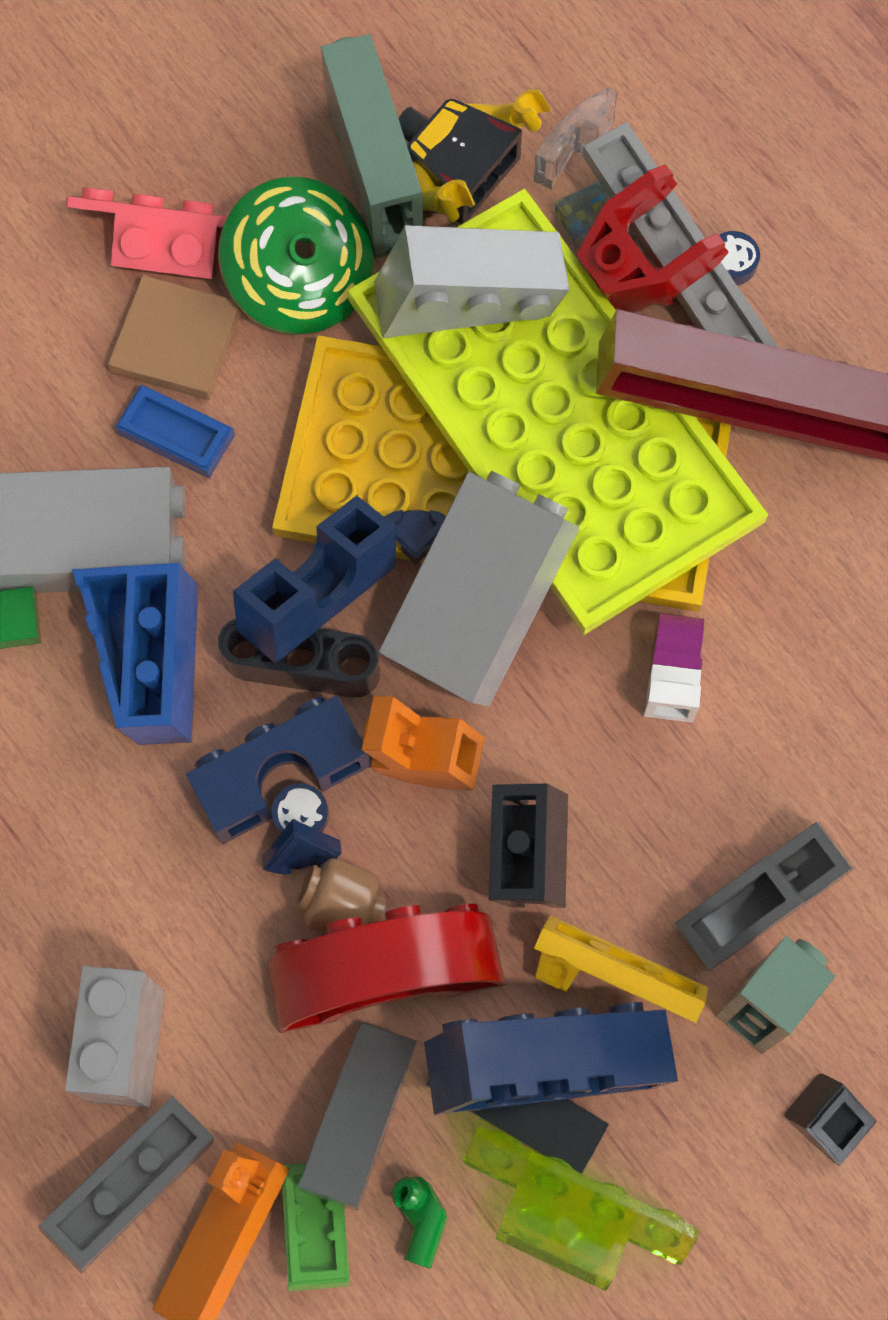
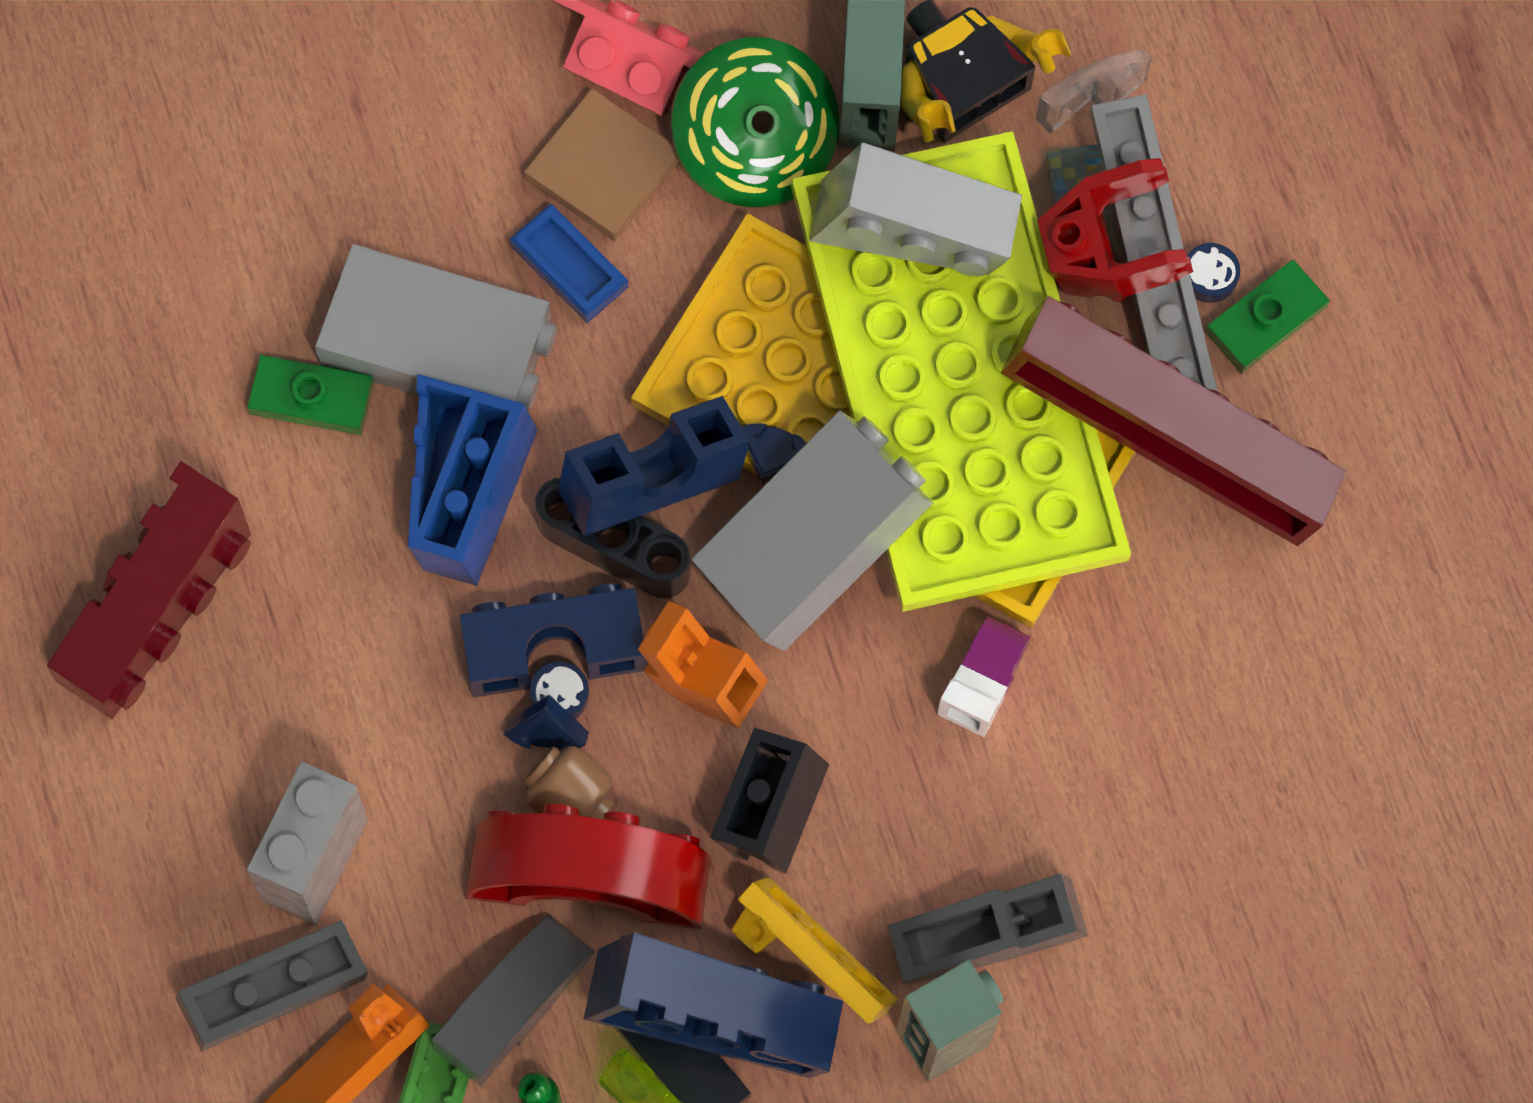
camera: 15 degrees right, 0 degrees up
(795, 278) = (1267, 316): none -> green plate

